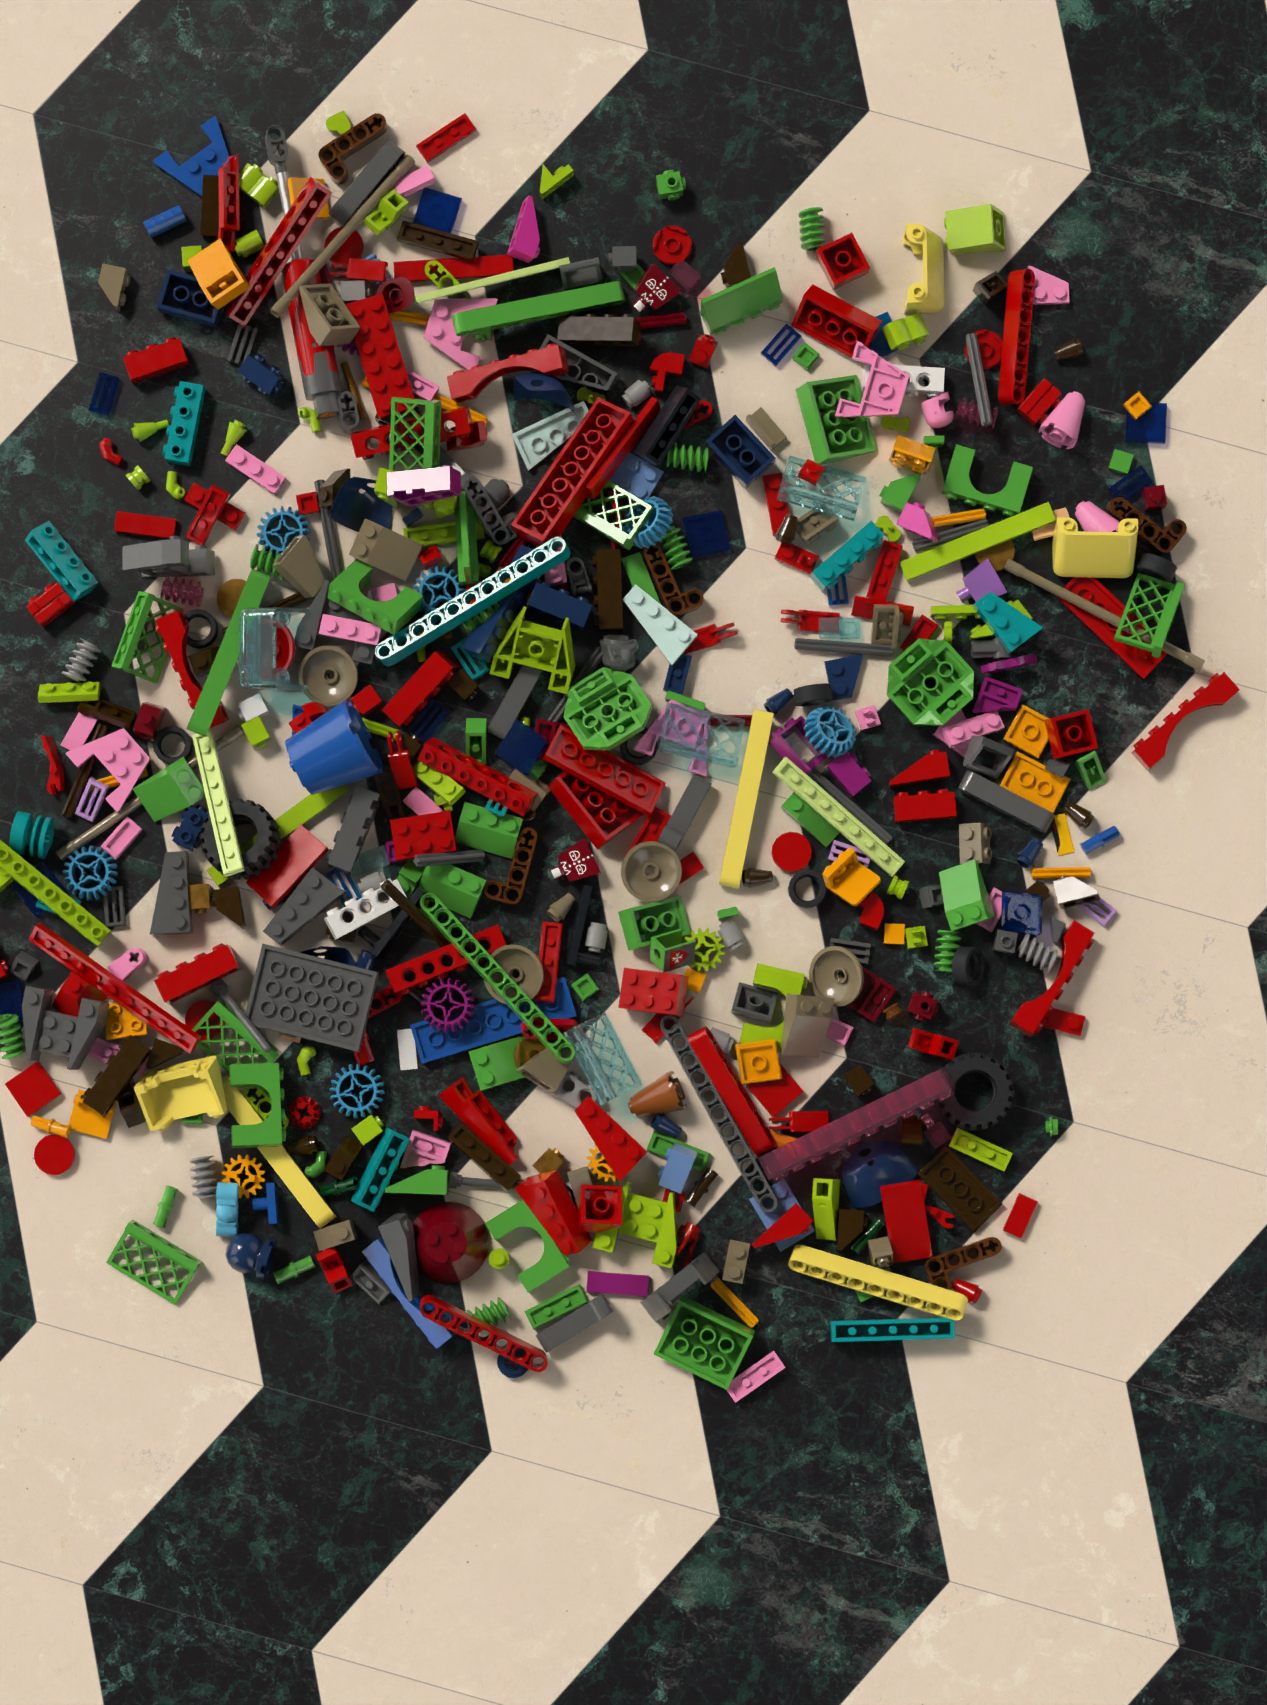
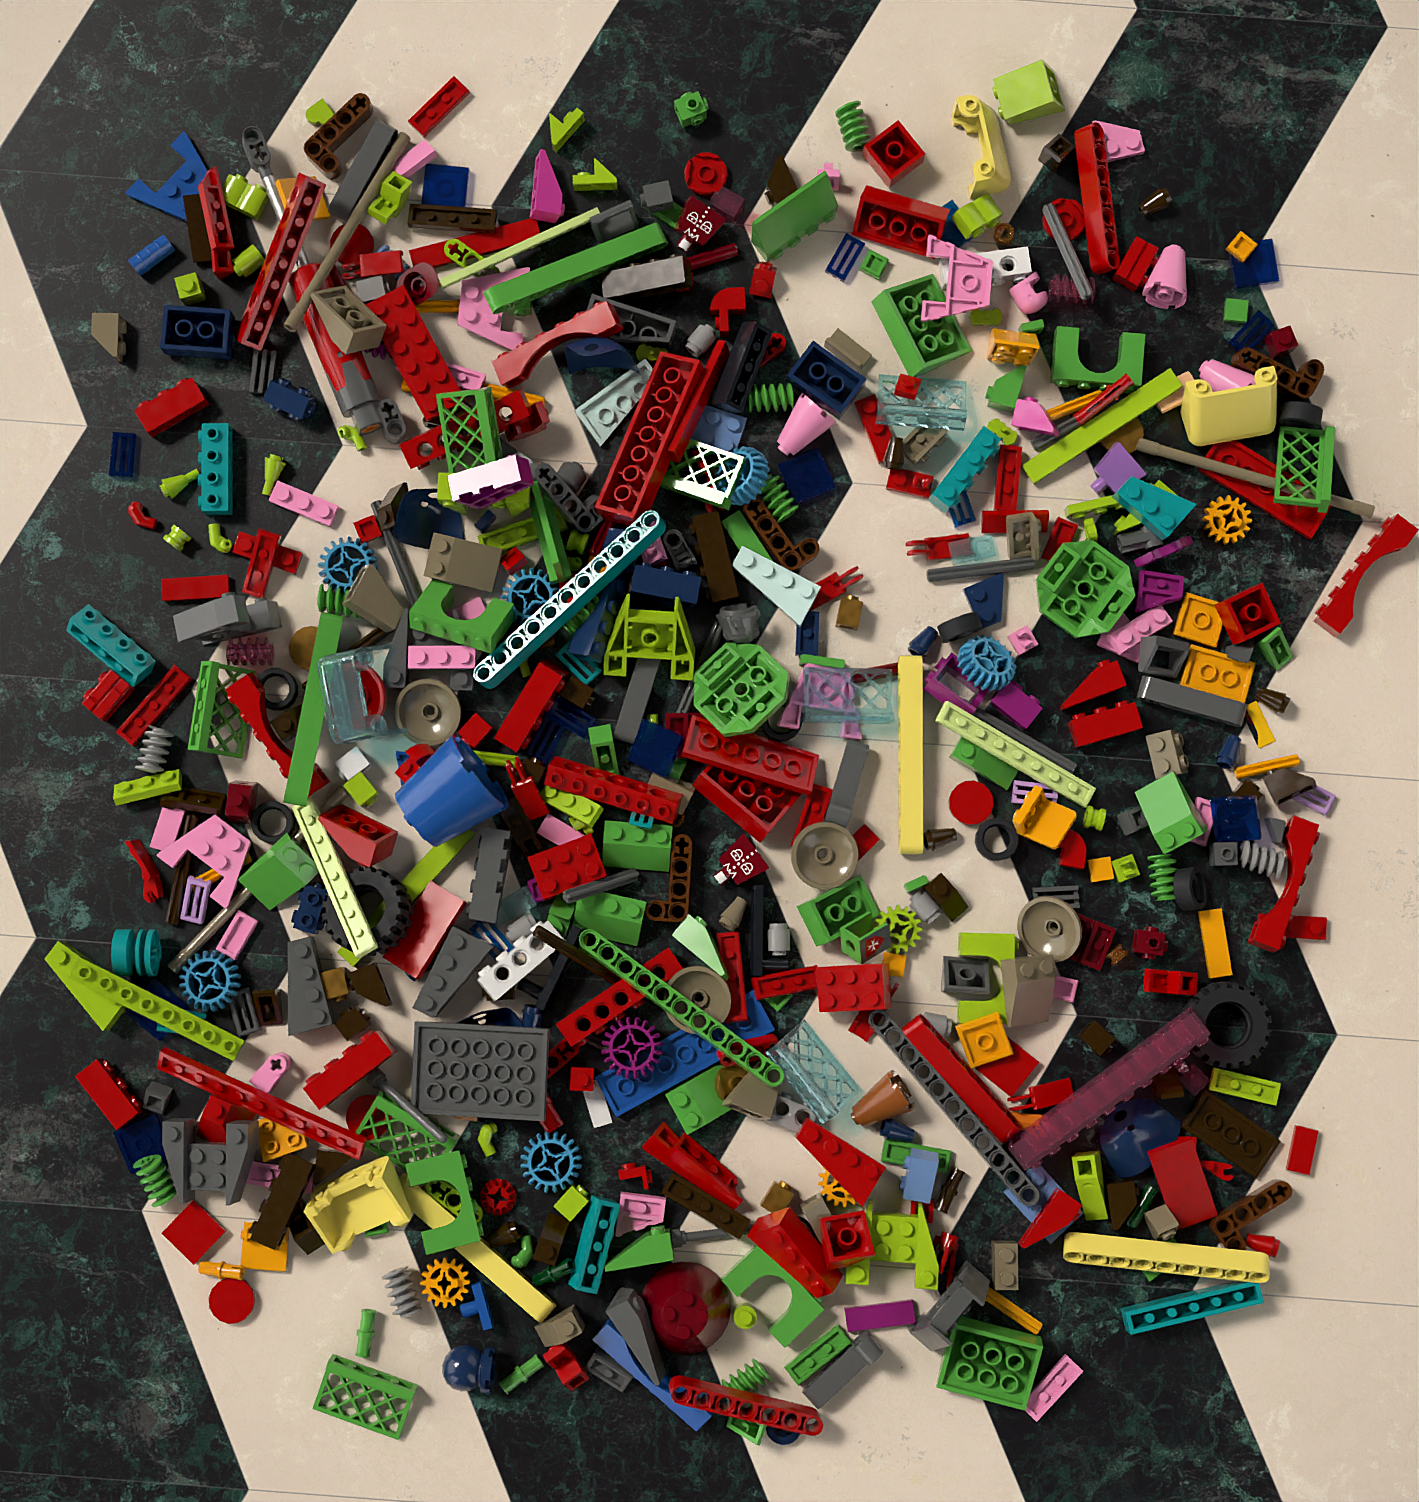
camera: 15 degrees left, 0 degrees up
(88, 621) = (154, 705): none -> red tile
(137, 905) = (268, 1006): none -> dark brown slope
(208, 934) = (353, 1022): none -> dark brown brick
(218, 274) = (220, 299): light orange slope -> none
(227, 1209) = (434, 1323): medium azure piece -> none
(246, 771) = (359, 835): none -> red slope
(352, 388) = (392, 395): pearl gold bar -> none
(399, 1024) = (582, 1078): none -> red brick
(451, 707) = (568, 724): none -> clear blue tile
(480, 1354) = (749, 1430): none -> bright green slope
(526, 924) = (700, 942): none -> slope
(577, 232) = (600, 181): none -> lime slope
(593, 976) = (785, 982): none -> red tile
(712, 488) = (803, 426): none -> bright pink cone
(718, 662) = (849, 612): none -> pearl gold brick
(752, 930) = (946, 896): none -> dark brown slope
(782, 269) = (833, 175): none -> bright pink tile
(933, 351) = (996, 235): none -> clear orange bush
(962, 529) = (1124, 383): none -> red pin
(982, 1019) = (1215, 943): none -> light orange tile
(1052, 1126) = (1316, 1045): bright green plate -> none
(1078, 651) = (1218, 517): none -> light orange gear
(1100, 839) = (1301, 722): blue axle -> none

